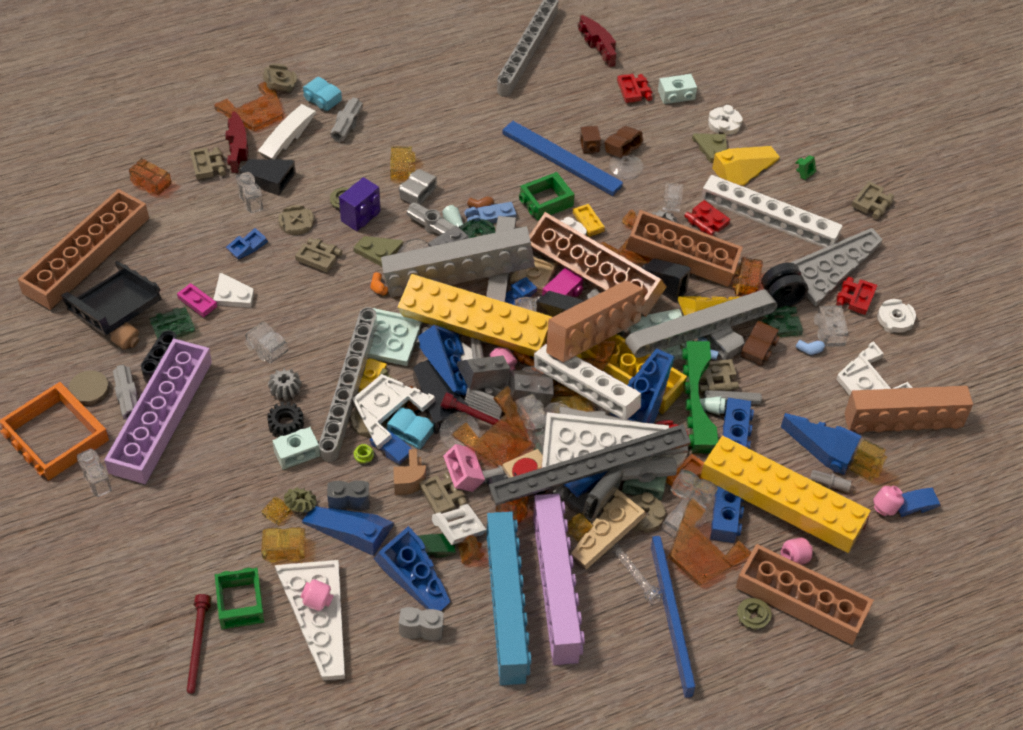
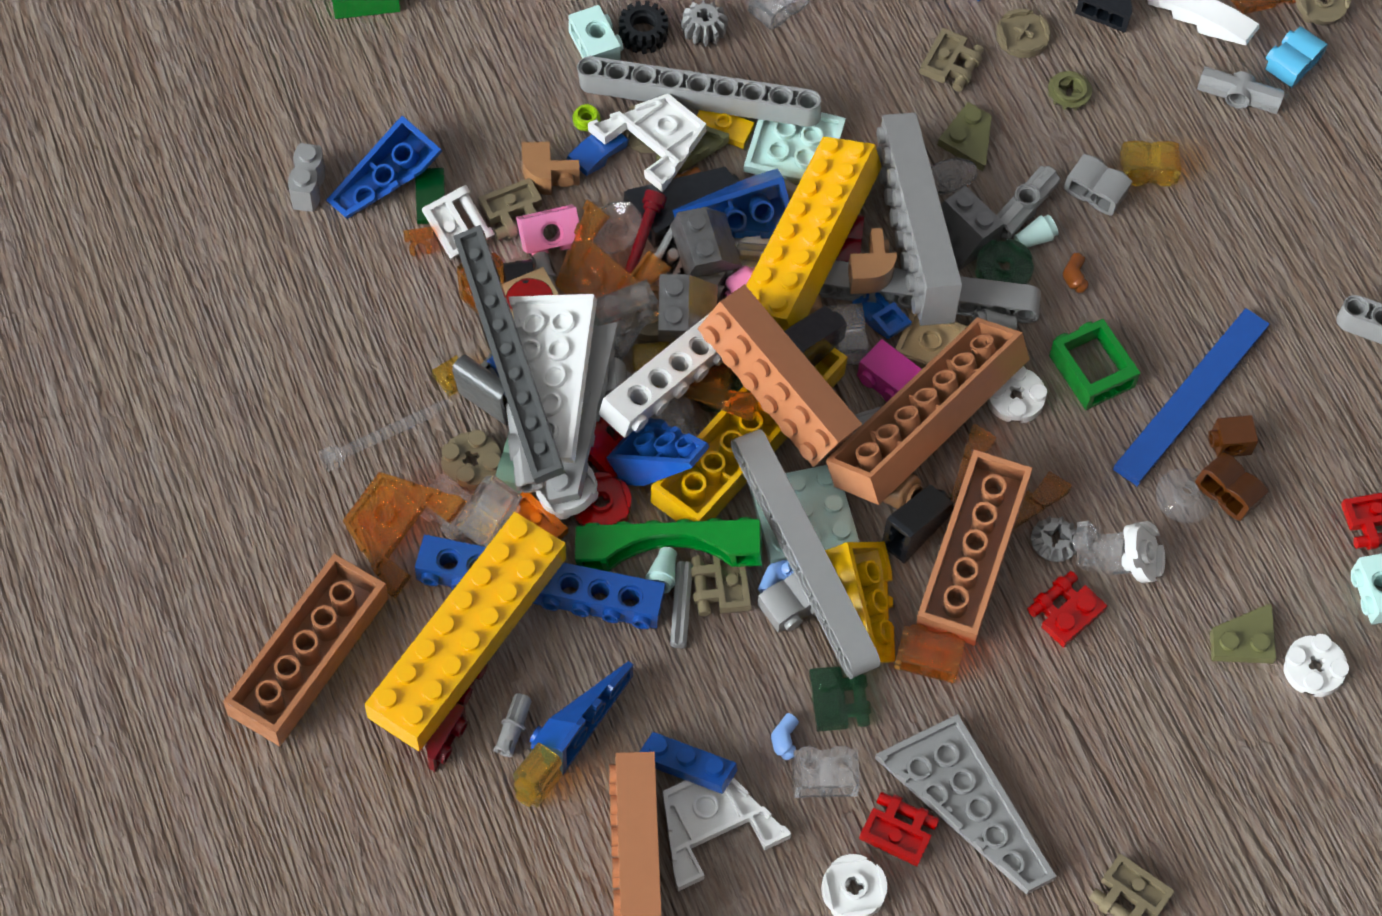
camera: 90 degrees right, 10 degrees up
(276, 510) = (499, 23): clear yellow tile -> none
(283, 544) = (441, 29): clear yellow brick -> none
(300, 505) = (512, 57): olive gear -> none
(316, 595) = (350, 56): bright pink head -> none
(320, 628) = (345, 68): white wing -> none
(349, 495) = (512, 96): dark grey brick -> none
(354, 528) = (466, 106): blue wedge -> none
(360, 204) = (1044, 100): dark purple brick -> none
(410, 427) = (624, 168): medium azure brick -> none
(490, 212) = (1055, 289): medium blue hinge -> none
(495, 284) = (872, 270): none -> medium nougat brick
(508, 599) = (330, 268): dark azure brick -> none
(557, 580) = (355, 328): lavender brick -> none
(589, 220) = (1047, 424): yellow plate -> none
(613, 524) = (438, 404): tan wing -> none
(672, 177) = (1143, 553): none -> white plate
(672, 616) = (292, 476): blue tile -> none
(743, 164) = (1199, 677): yellow wedge -> none
(749, 606) = (288, 575): olive gear -> none
(760, 343) = (784, 652): reddish brown brick -> none
(771, 212) = (1126, 618): white brick -> none
(785, 284) = (900, 697): black wheel -> none
(797, 550) = (382, 652): bright pink head -> none
(806, 167) = (1202, 786): green tile -> none
(840, 389) = (690, 763): none -> blue plate
(888, 500) = (455, 799): bright pink head -> none
(920, 499) = (469, 850): blue slope -> none

